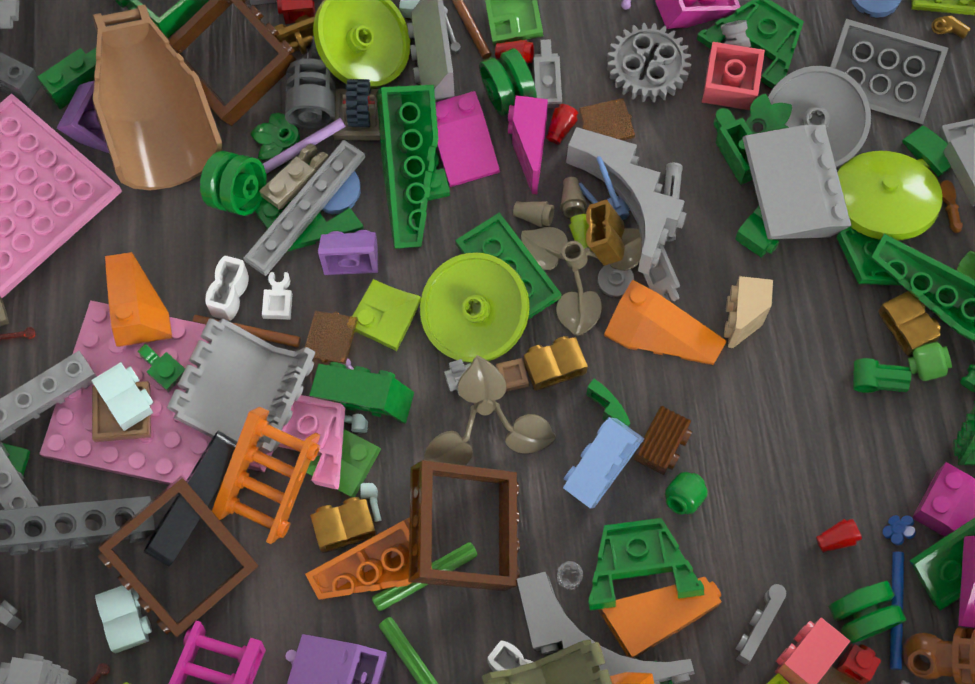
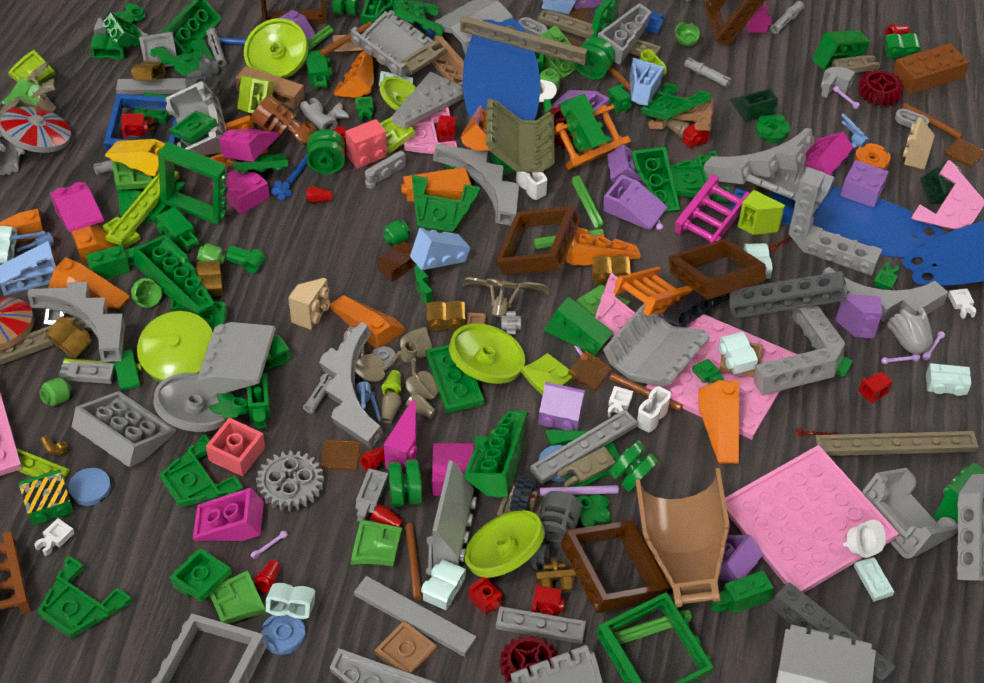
camera: 165 degrees left, 20 degrees down
(370, 491) = (589, 285): light aqua hand -> none
(565, 583) = (482, 222): clear bush -> none
(605, 232) = (380, 365): pearl gold brick -> none
(736, 33) = (219, 467): light grey wheel -> none
(949, 197) = (132, 344): dark orange piece -> none

